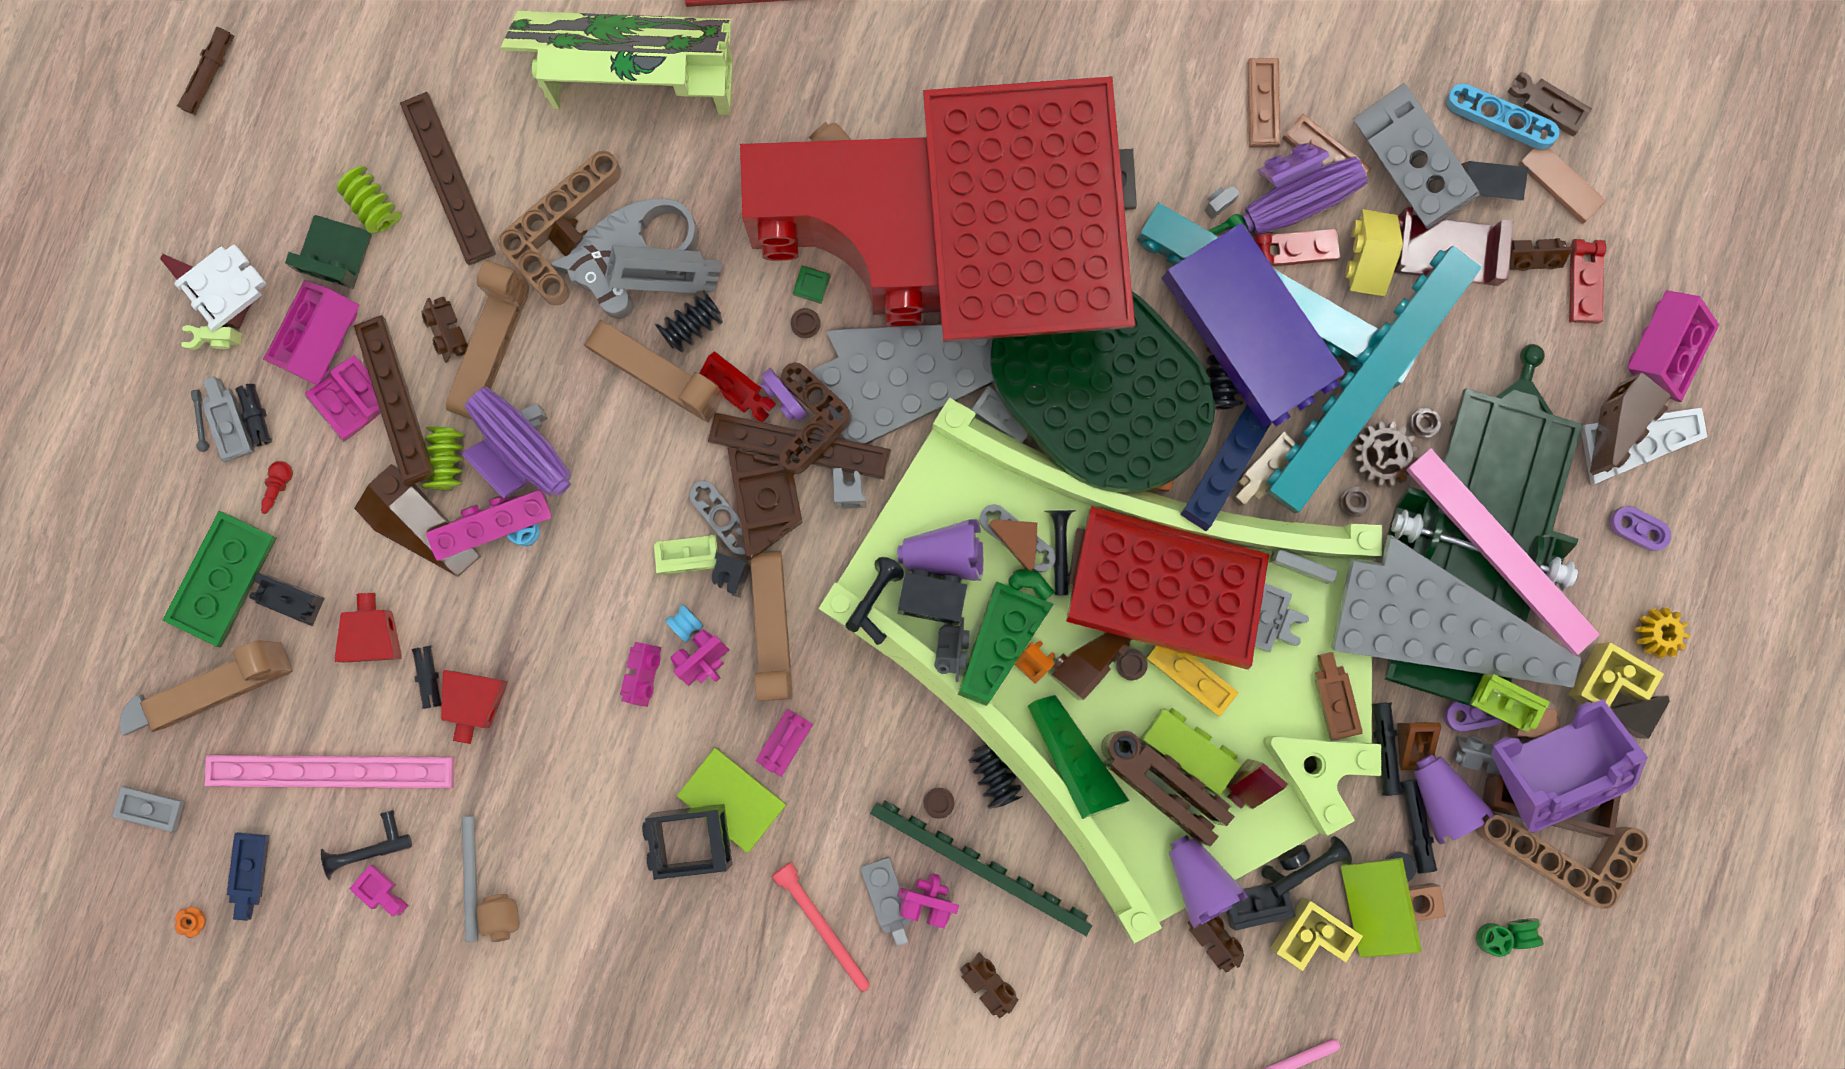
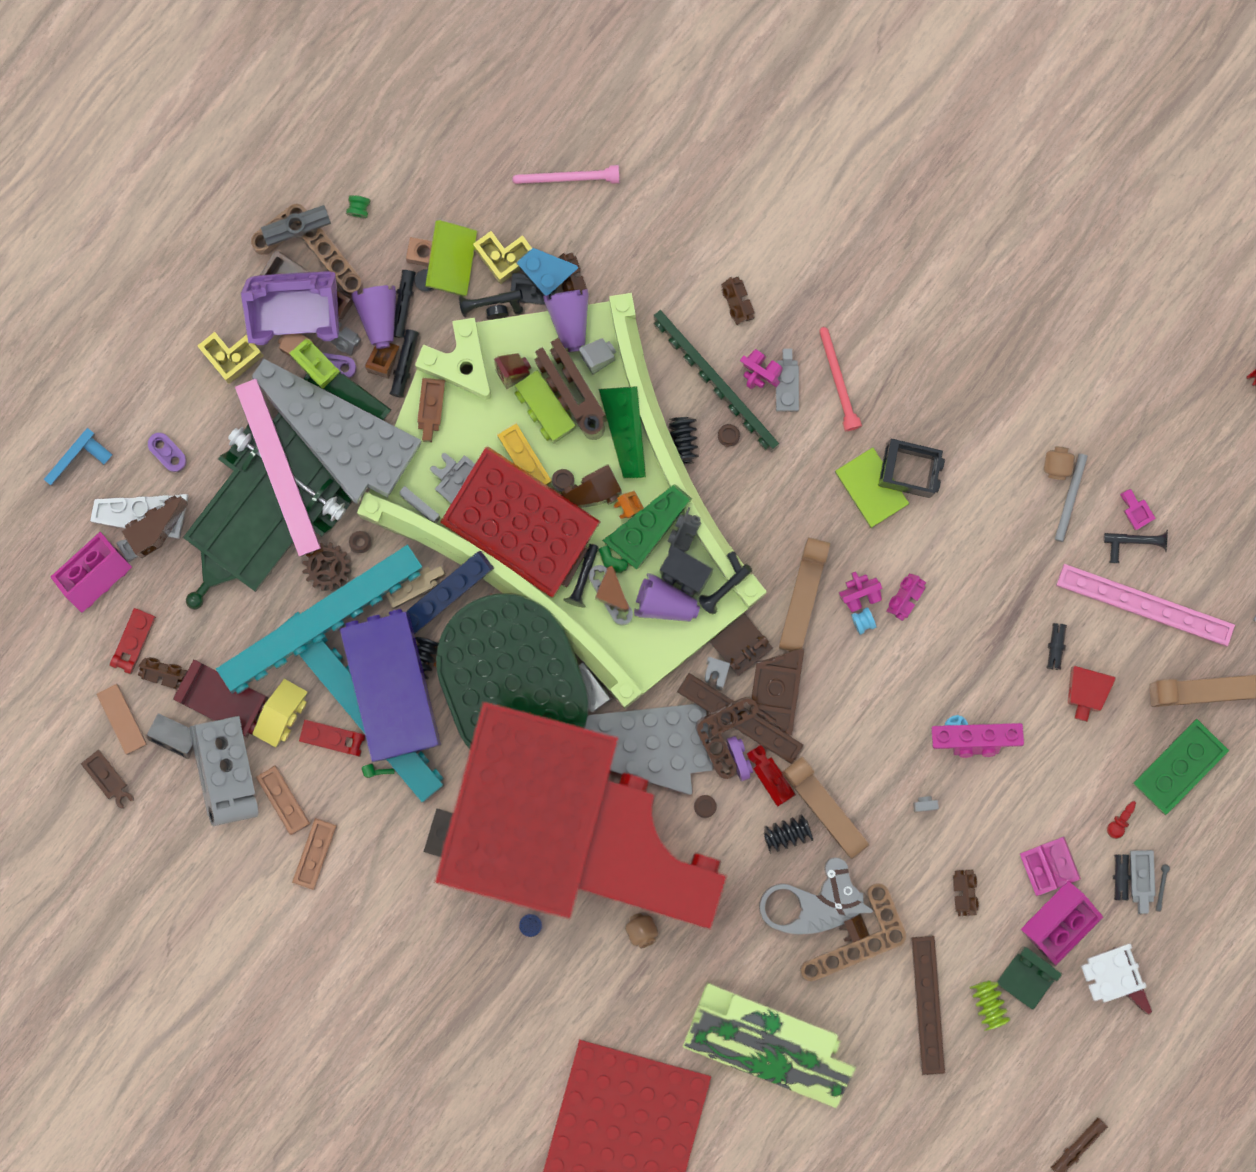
camera: 150 degrees left, 0 degrees up
(218, 339) = (1136, 946): yellowish green plate -> none
(247, 873) = (1223, 555): dark blue hinge -> none
(287, 599) = (1137, 736): black hinge -> none
(394, 401) = (1016, 850): reddish brown tile -> none
(406, 517) = (1034, 764): reddish brown wedge -> none
(443, 457) = (995, 796): lime piece -> none
(469, 702) = (1031, 618): red torso -> none
(492, 335) = (936, 870): medium nougat beam -> none
(512, 449) = (943, 781): medium lavender plate -> none
(647, 267) = (795, 876): light grey hinge -> none
(685, 555) = (845, 669): yellowish green hinge -> none
(714, 495) = (812, 668): light grey beam -> none
(730, 571) = (817, 645): black hinge -> none
(784, 742) = (822, 514): dark pink hinge -> none
(811, 284) = (690, 833): green tile -> none
(829, 539) = (741, 644): none -> reddish brown hinge
(1148, 844) = (597, 355): none -> light grey slope
(1221, 200) = (374, 790): light grey plate -> none
(1255, 935) = (545, 270): none -> dark azure wing
(1302, 187) = (314, 778): medium lavender plate -> none
(1433, 419) = (282, 576): plate -> none
(1500, 121) = (143, 784): medium azure beam -> none
(1501, 942) = (379, 205): green wheel -> none
(1616, 864) = (281, 230): none -> dark grey piece
(1641, 716) = (222, 325): dark brown slope -> none
(1672, 631) = (190, 374): yellow gear -> none
(1750, 504) = (84, 441): none -> dark azure piece

